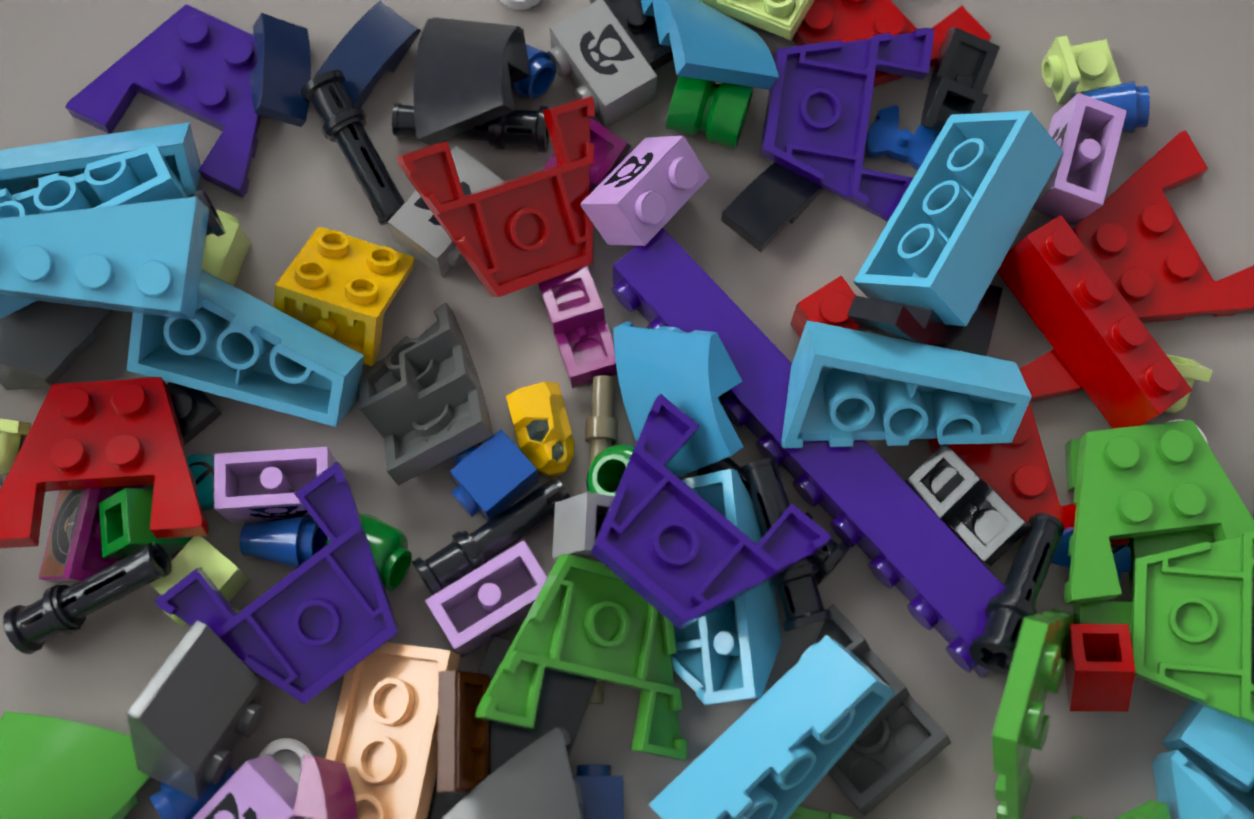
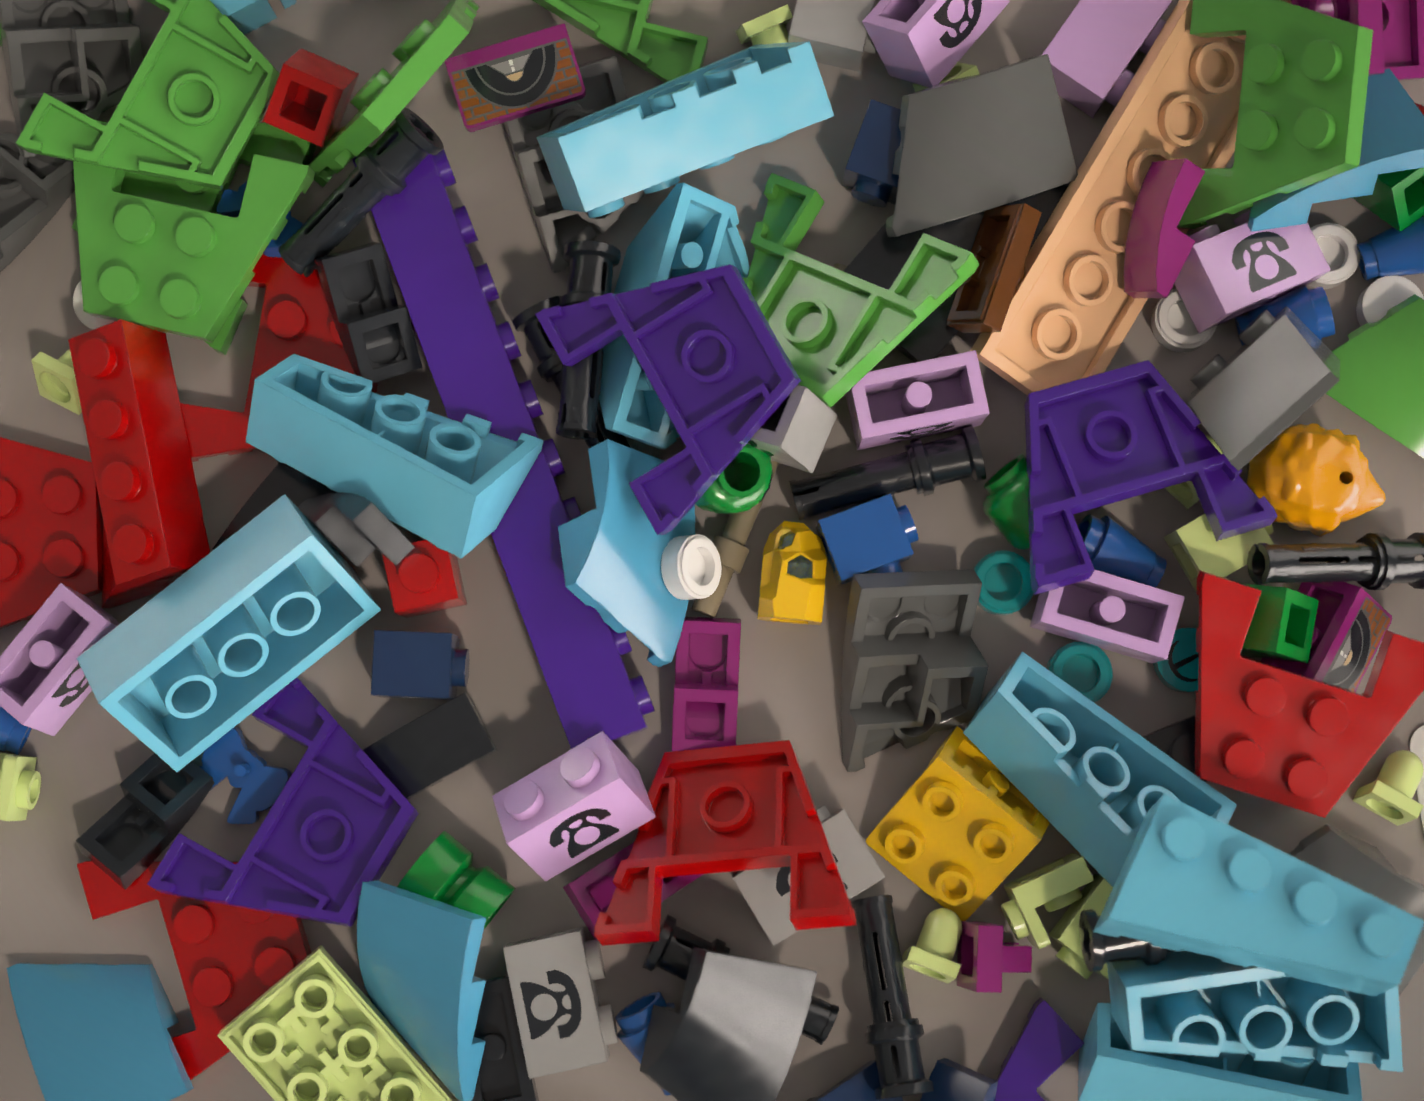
camera: 155 degrees left, 10 degrees up
(125, 655) = (1314, 478): none -> light orange animal
(260, 268) = (1052, 885): none -> yellowish green bracket
(285, 432) = (1083, 668): none -> teal tile
(289, 202) = (986, 957): none -> magenta tile
(333, 198) = (936, 946): none -> yellowish green piece
(373, 489) = (1004, 582): none -> teal tile
(625, 399) = (691, 567): none -> white tile
(806, 256) = (418, 665): none -> dark blue brick
(934, 751) = (515, 78): none -> panel

